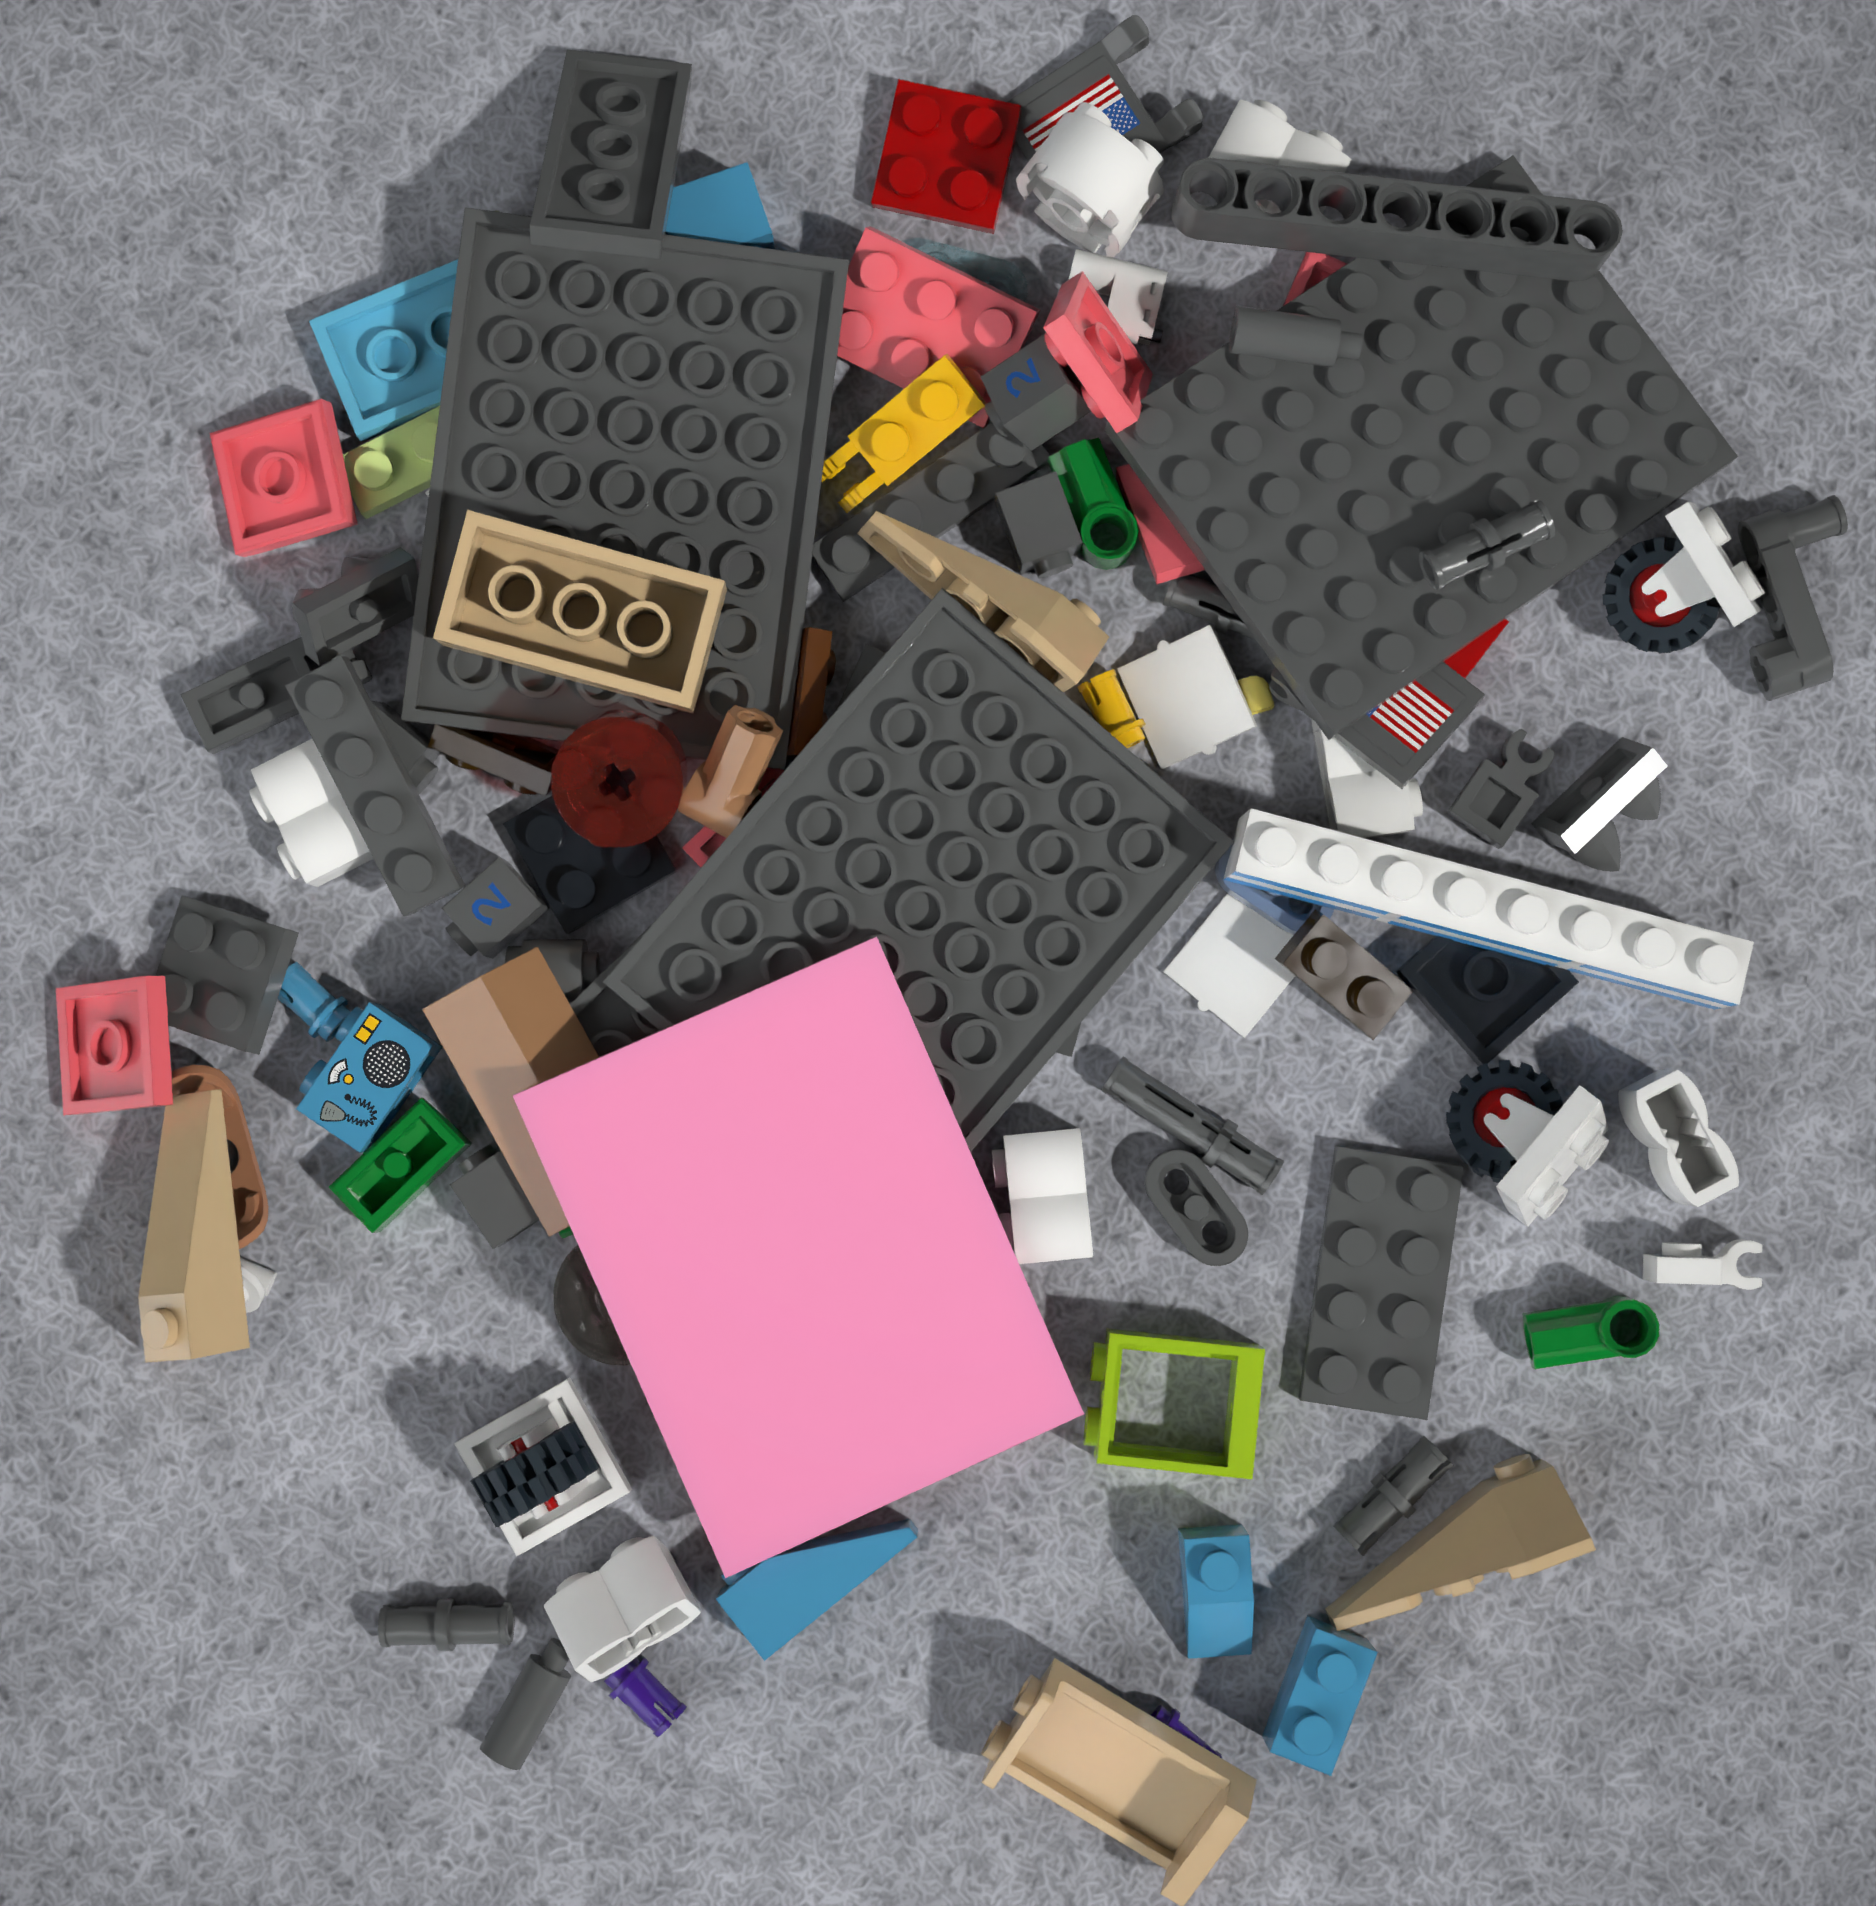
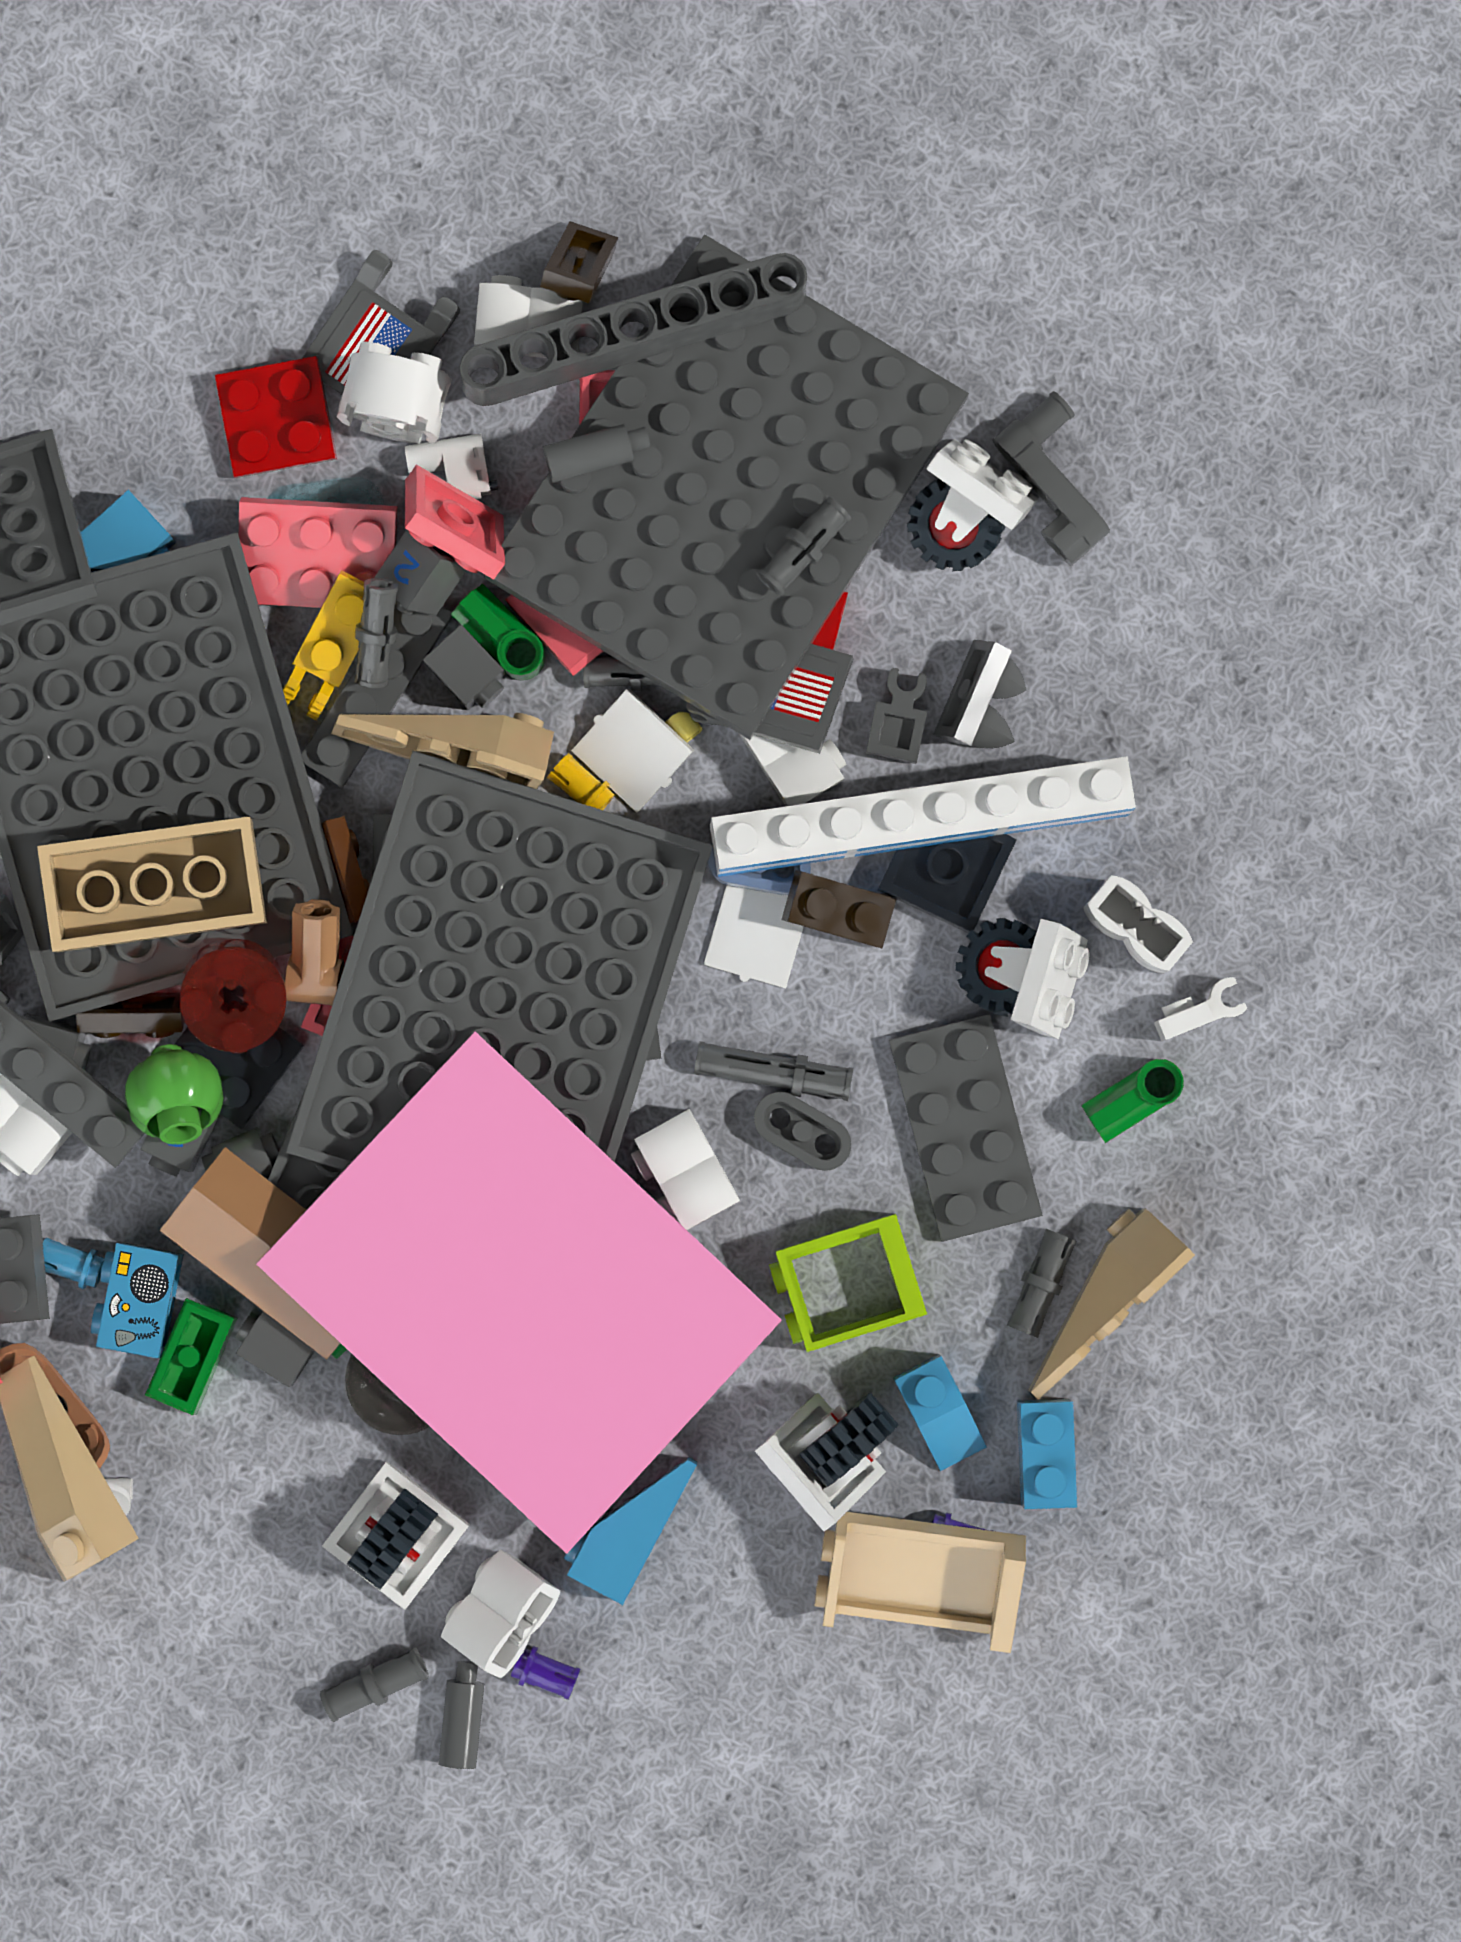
camera: 25 degrees left, 0 degrees up
(499, 856) = (168, 1090): none -> bright green plant
(957, 438) = (376, 633): none -> dark grey pin
(1073, 1592) = (829, 1454): none -> white plate
(1360, 124) = (578, 262): none -> dark brown plate

